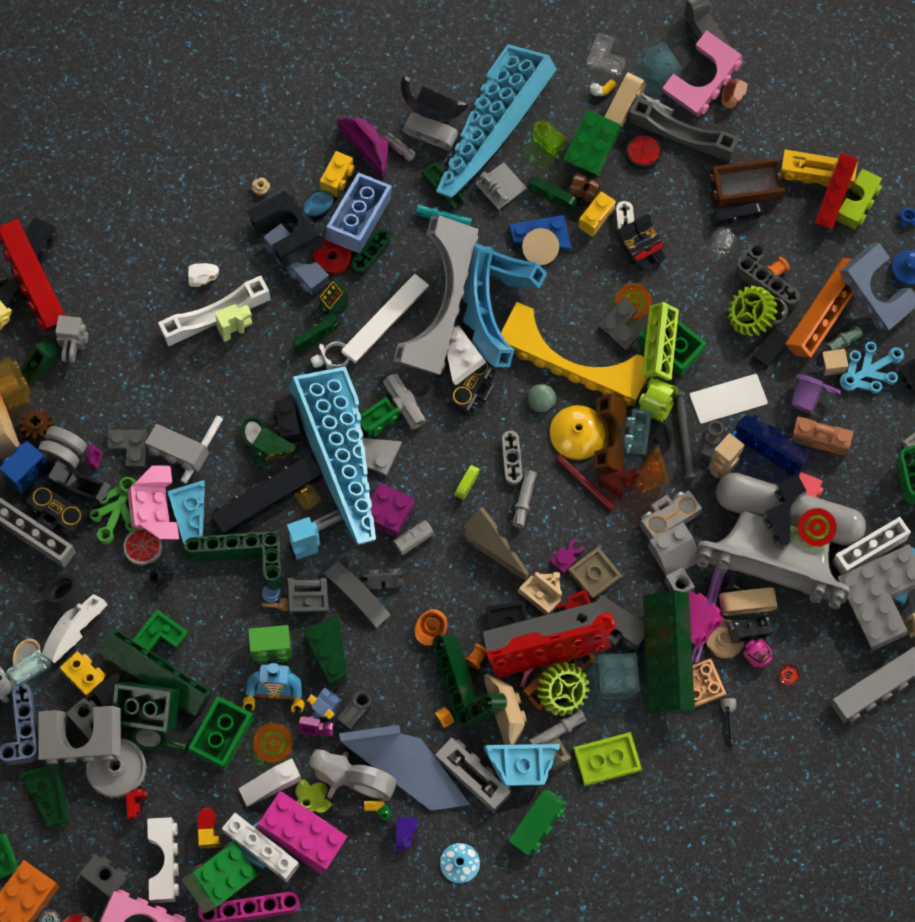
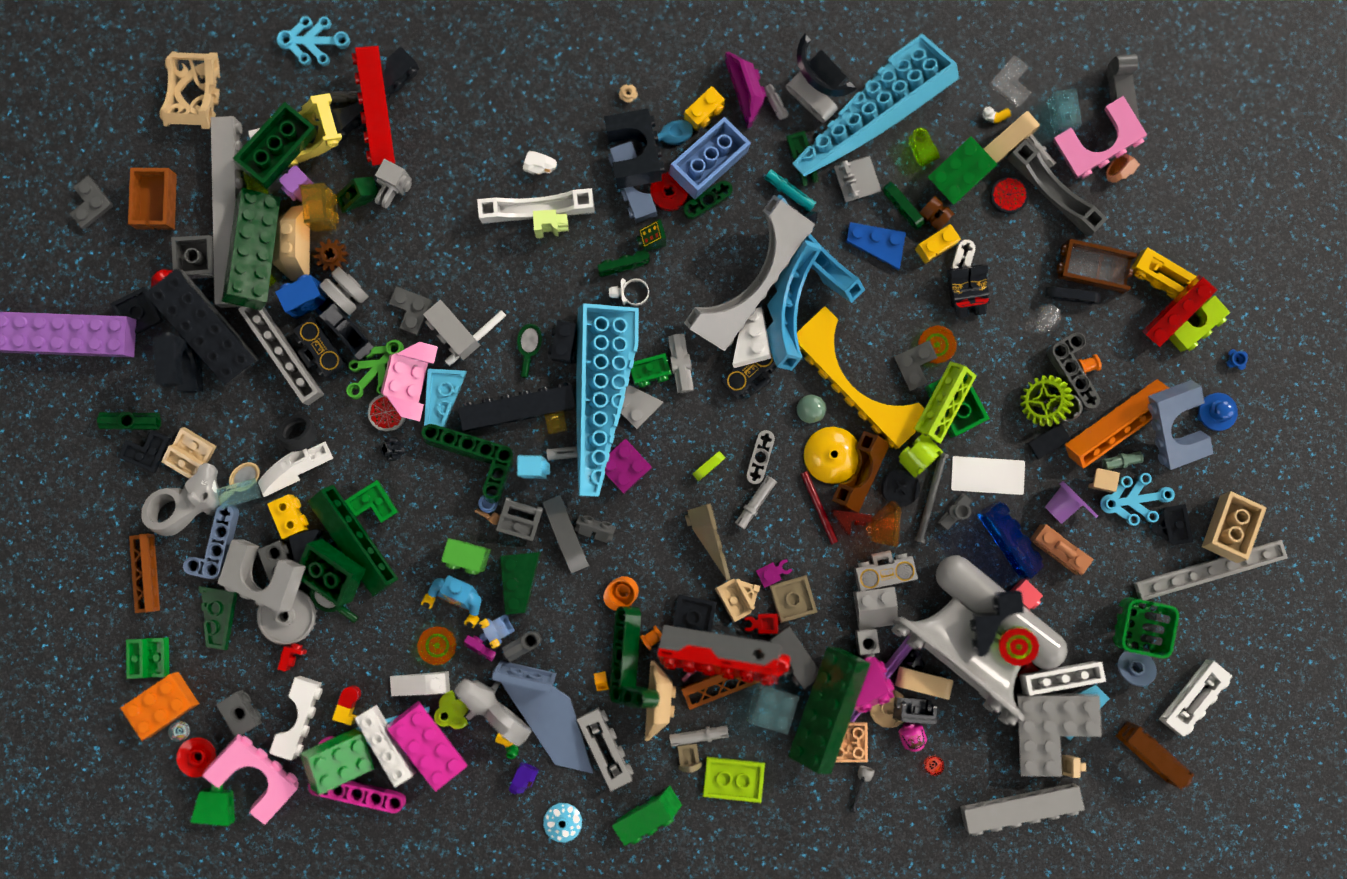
camera: 20 degrees right, 15 degrees up
(93, 456) = (372, 308): magenta tile -> none
(221, 733) = (390, 622): green brick -> none
(270, 446) = (537, 361): dark green slope -> none
(385, 318) = (694, 273): white tile -> none
(413, 537) = (638, 500): light grey axle -> none
(522, 763) = (653, 759): medium azure wing -> none
(540, 246) = (870, 257): tan tile -> none
(551, 694) = (729, 698): lime gear -> none
(638, 431) = (888, 482): clear light blue brick -> none
(725, 456) = (961, 540): tan arch -> none

